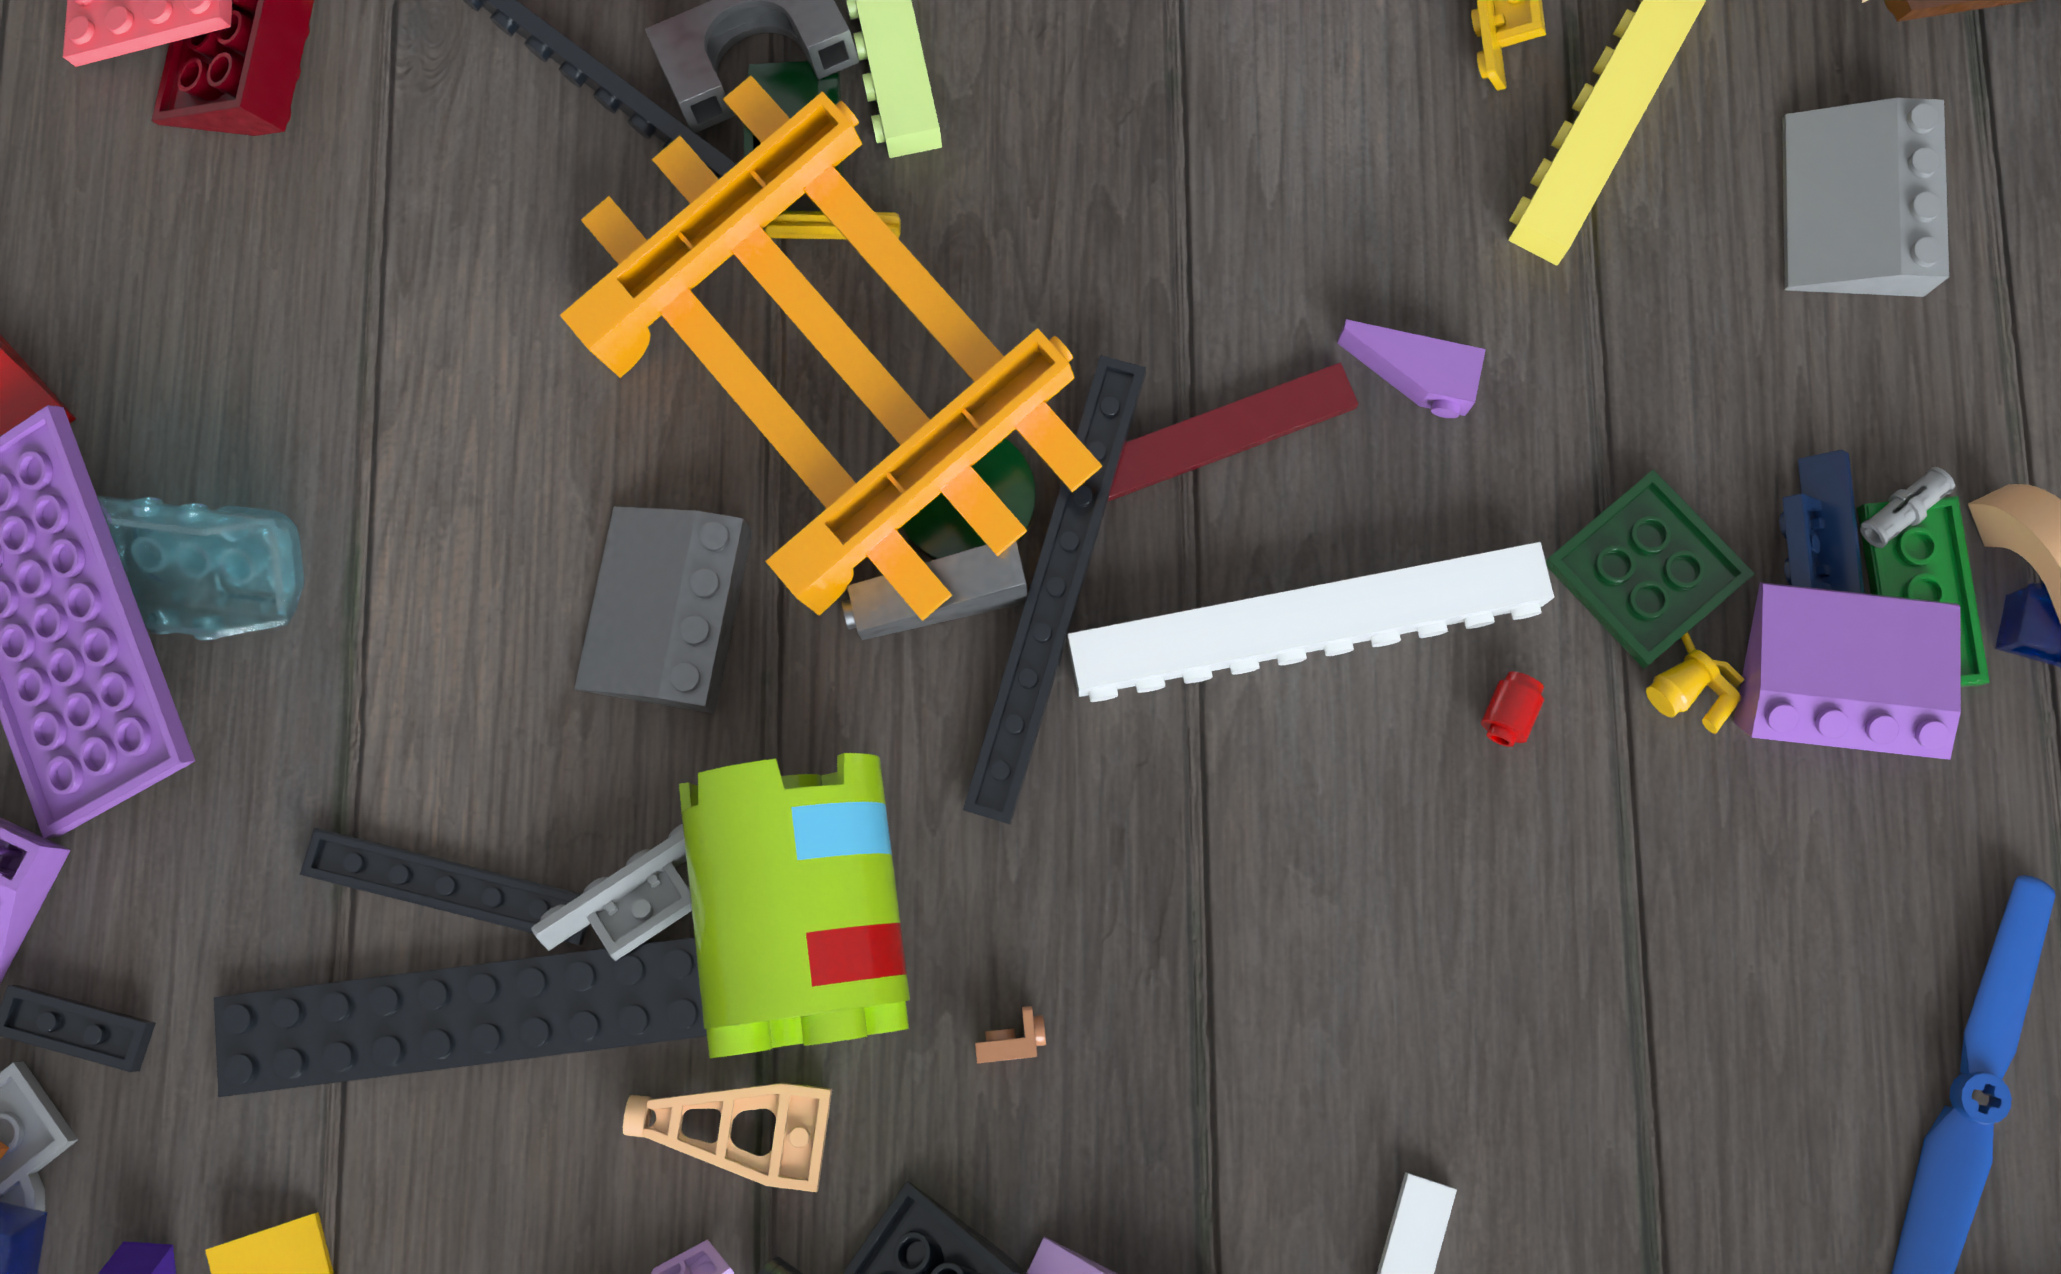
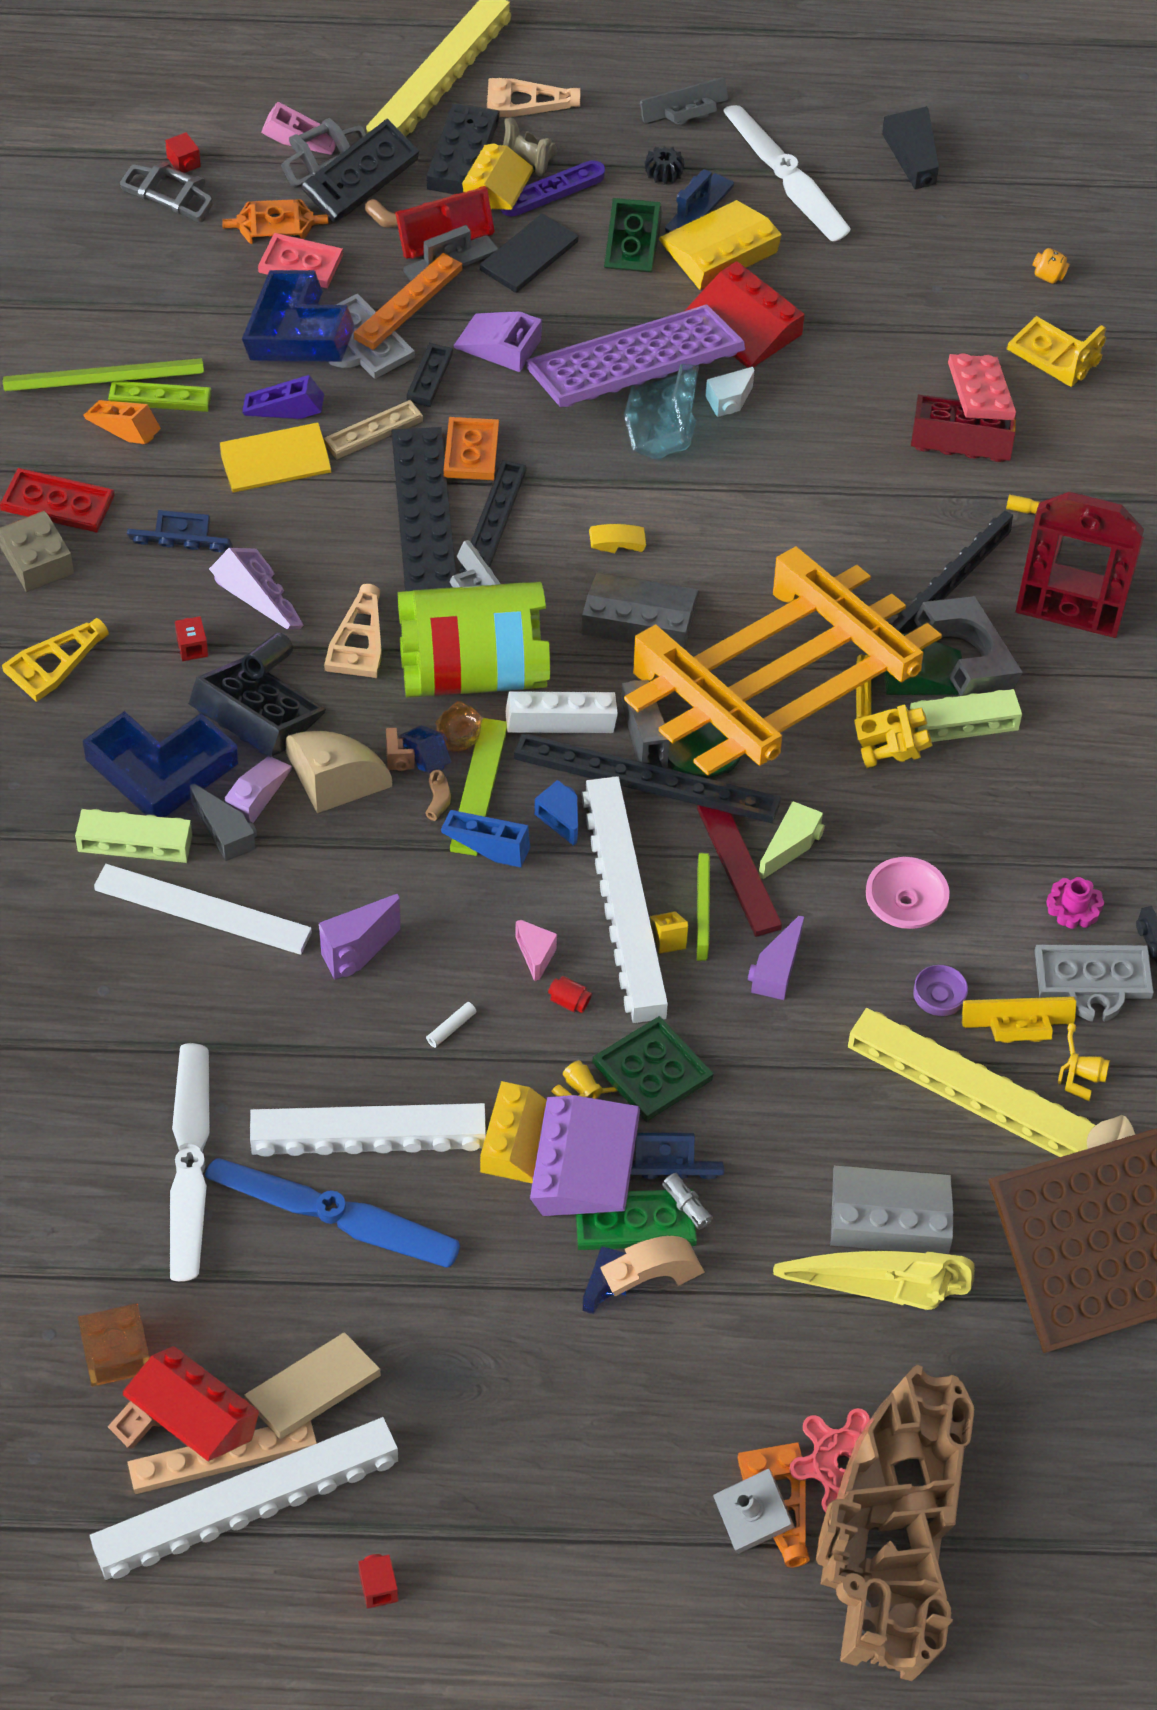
camera: 85 degrees right, 25 degrees down
(141, 451) = (729, 391): none -> white slope
(212, 1134) = (373, 429): none -> tan tile
(272, 935) = (471, 448): none -> orange plate
(496, 651) = (611, 536): none -> yellow slope
(920, 740) = (561, 712): none -> white brick
(950, 159) = (896, 729): none -> yellow hips
(961, 925) = (459, 726): none -> clear orange hair
(1003, 988) = (428, 748): none -> clear blue arch
(1058, 1159) = (335, 768): none -> tan brick
(1073, 884) = (482, 774): none -> lime tile
(1098, 952) = (441, 795): none -> medium nougat arm
(1129, 735) = (559, 810): none -> blue slope
(1161, 340) = (792, 838): none -> yellowish green slope
(1205, 867) = (493, 838): none -> blue slope
(1283, 130) = (910, 882): none -> bright pink dish
(1318, 489) = (703, 901): none -> lime tile
(1366, 546) = (669, 931): none -> yellow slope
(1425, 766) = (536, 945): none -> bright pink slope
(1449, 116) = (940, 990): none -> medium lavender piece
(1458, 1099) = (358, 935): none -> medium lavender slope
(1583, 911) = (451, 1024): none -> white piece
(1800, 790) = (513, 1133): none -> yellow slope
(1821, 1049) = (367, 1129): none -> white brick
(1999, 194) = (890, 1276): none -> light yellow piece

